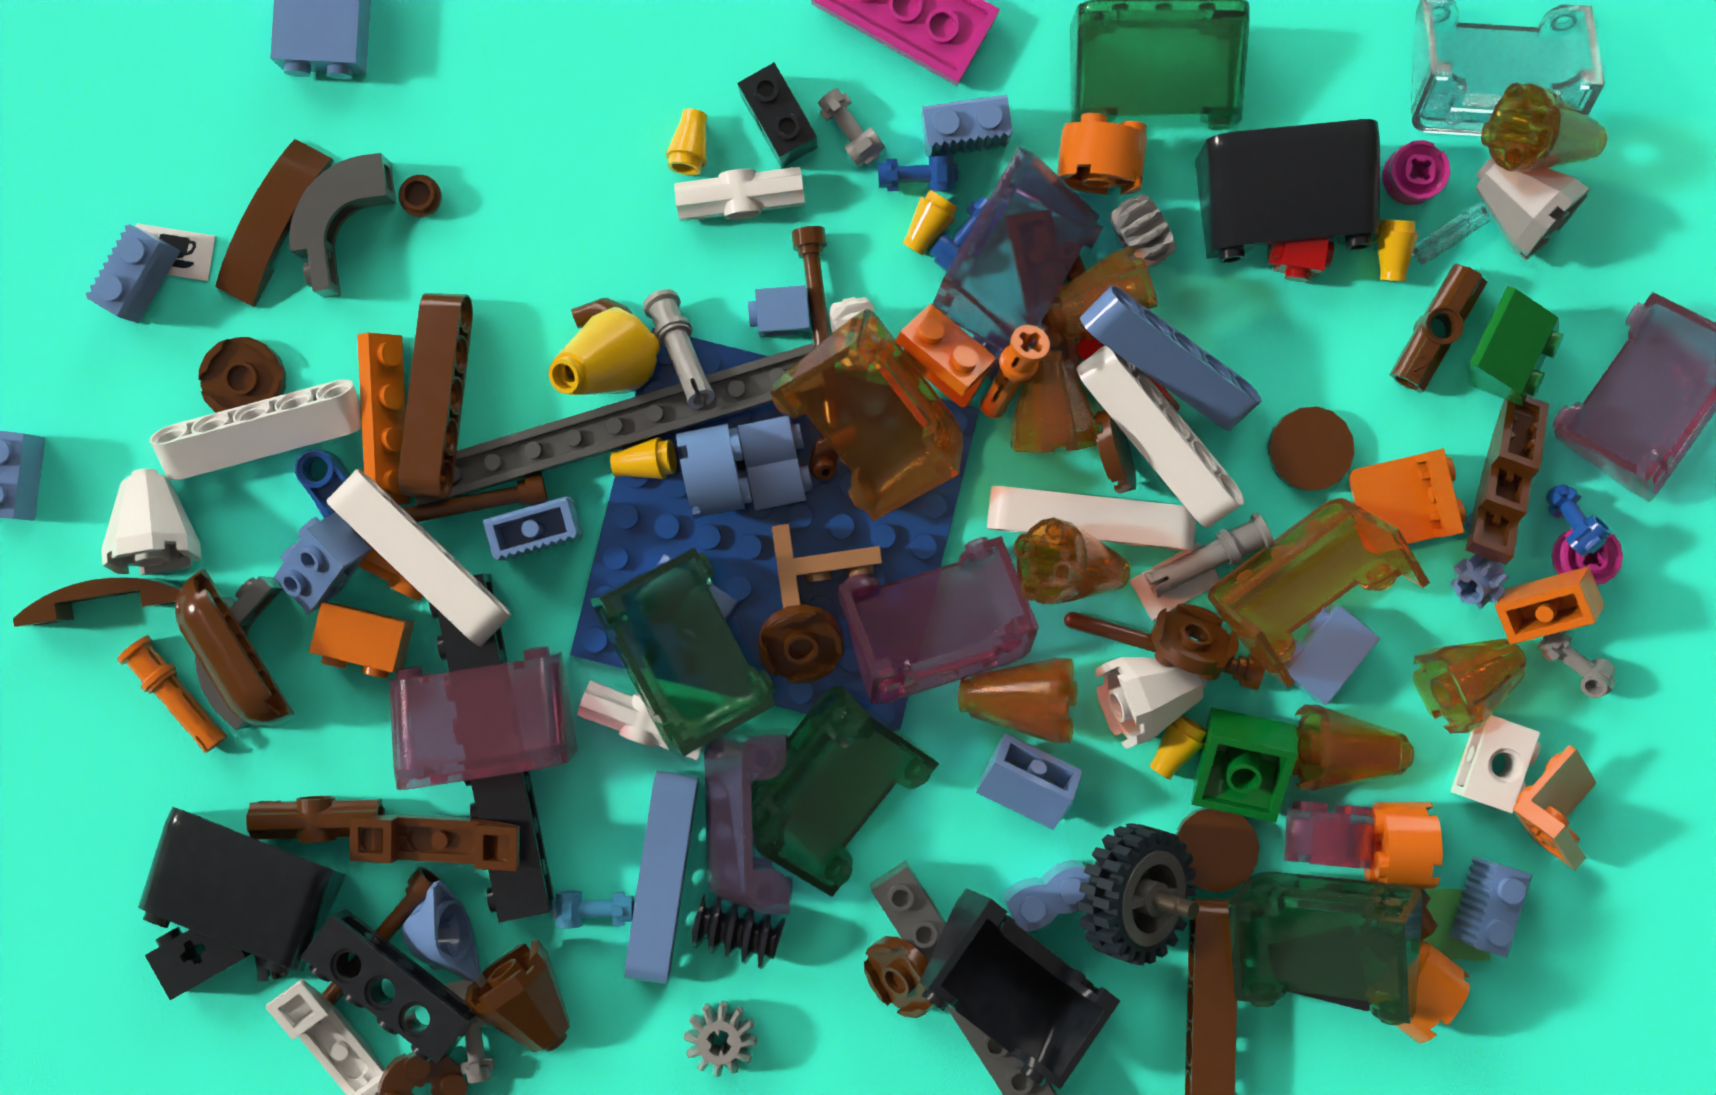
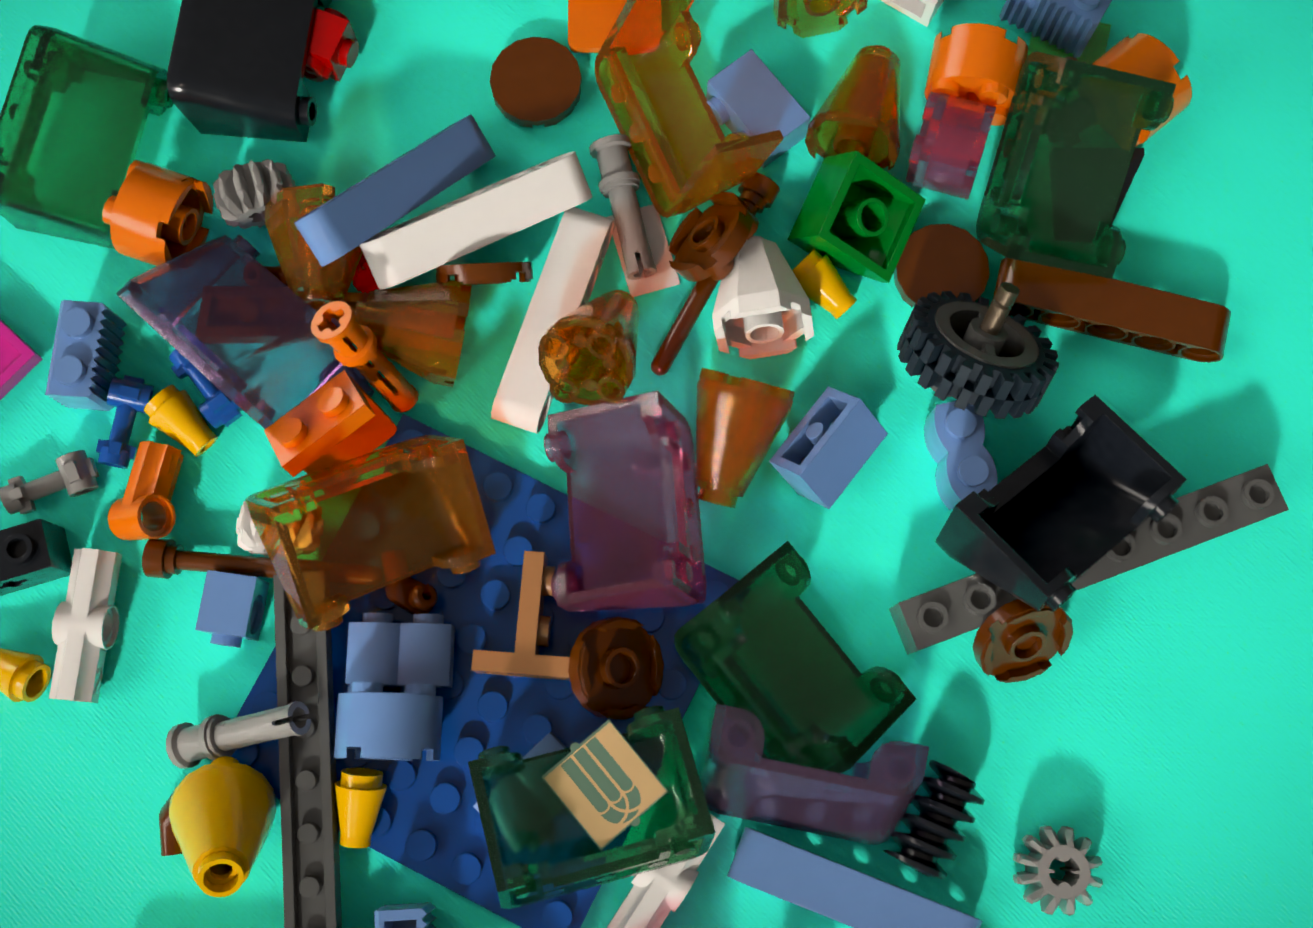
camera: 75 degrees left, 10 degrees down
(703, 657) = (604, 784): none -> piece
(848, 215) = (148, 492): none -> orange piece

